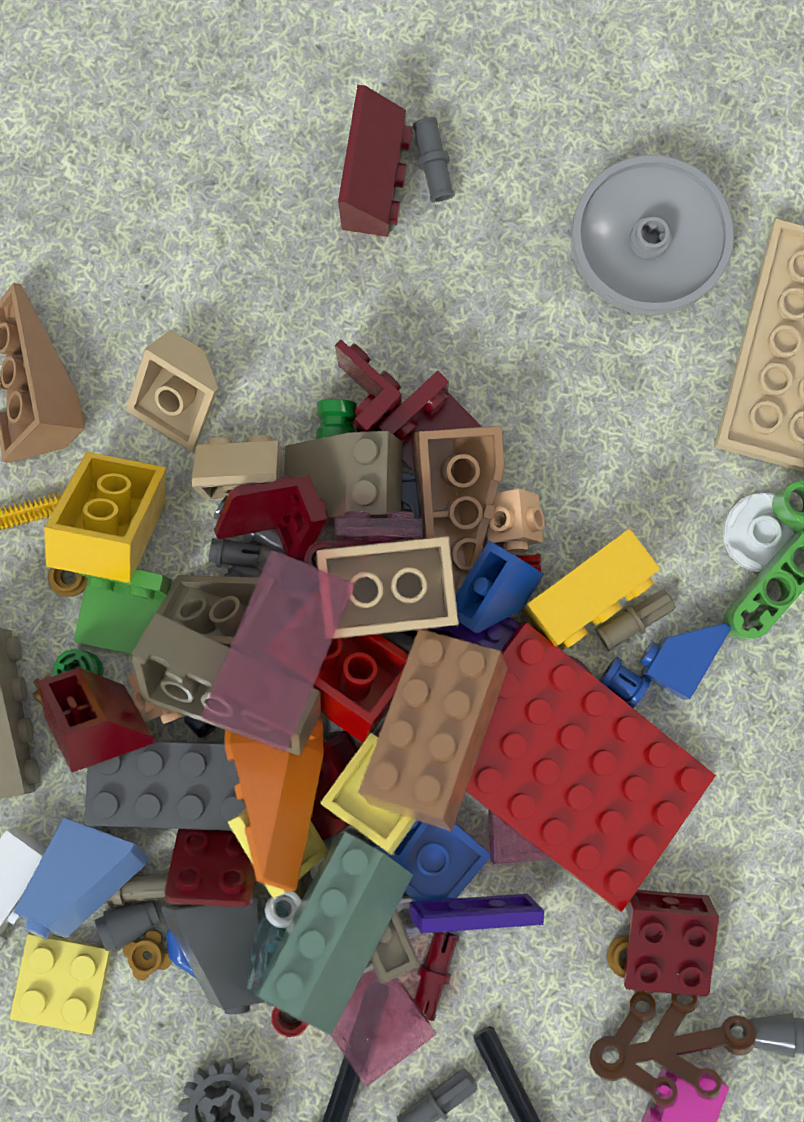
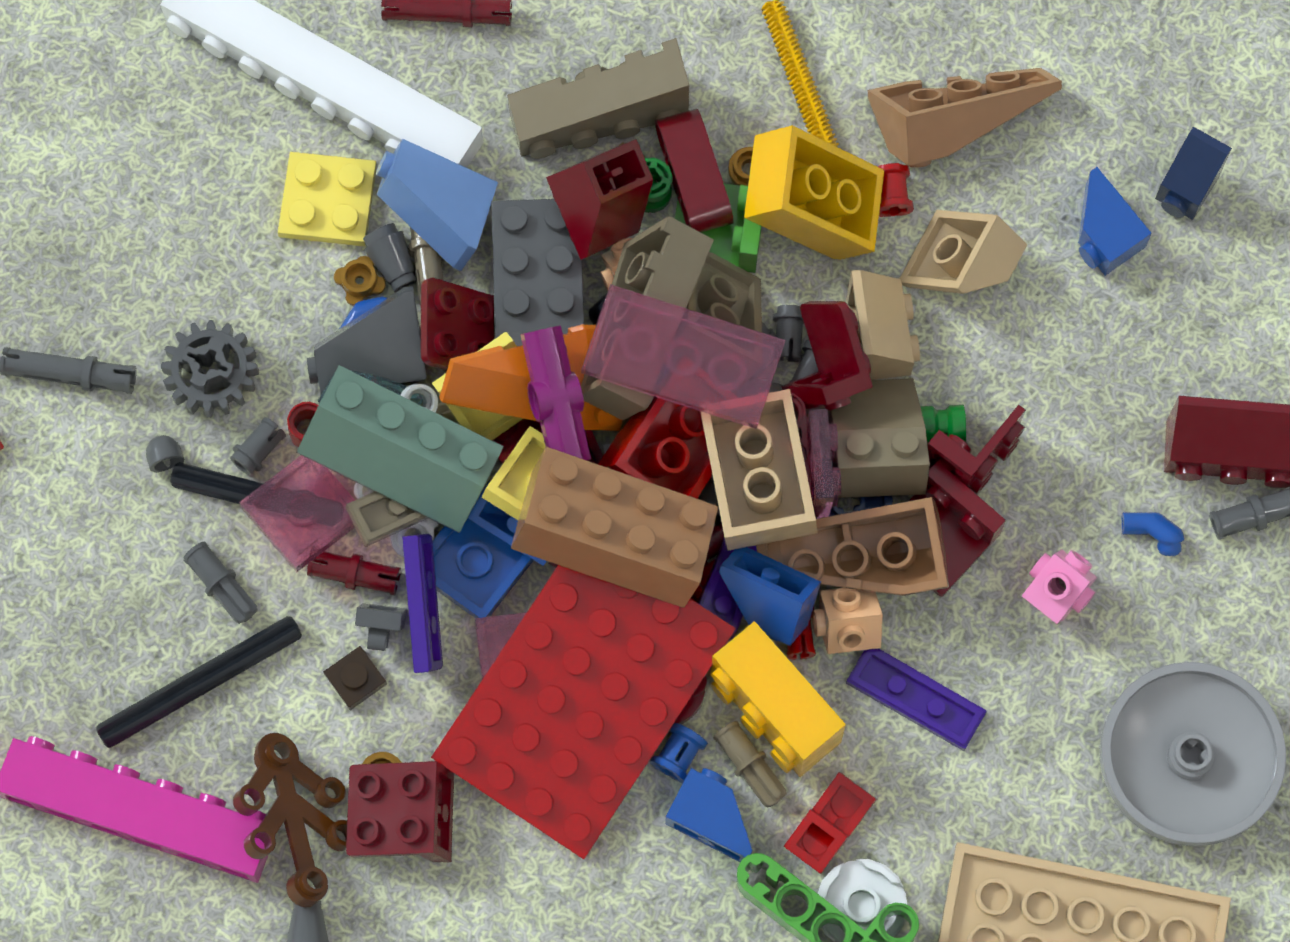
camera: 85 degrees right, 10 degrees down
(70, 628) = (694, 171): none -> dark red beam
(105, 444) = (894, 191): none -> red bush
(117, 174) = (1192, 174): none -> dark blue slope
(156, 258) = (1108, 226): none -> blue slope
(299, 778) = (555, 392): none -> magenta piece
(306, 1063) = (257, 446): none -> dark grey pin
(439, 245) = (1156, 525): none -> blue arm
(486, 952) = (380, 620): none -> dark grey tile
(493, 332) = (1046, 591): none -> bright pink brick
(535, 977) = (355, 678): none -> dark brown plate
(581, 468) = (916, 697): none -> dark purple tile
(690, 554) = (830, 822): none -> red slope

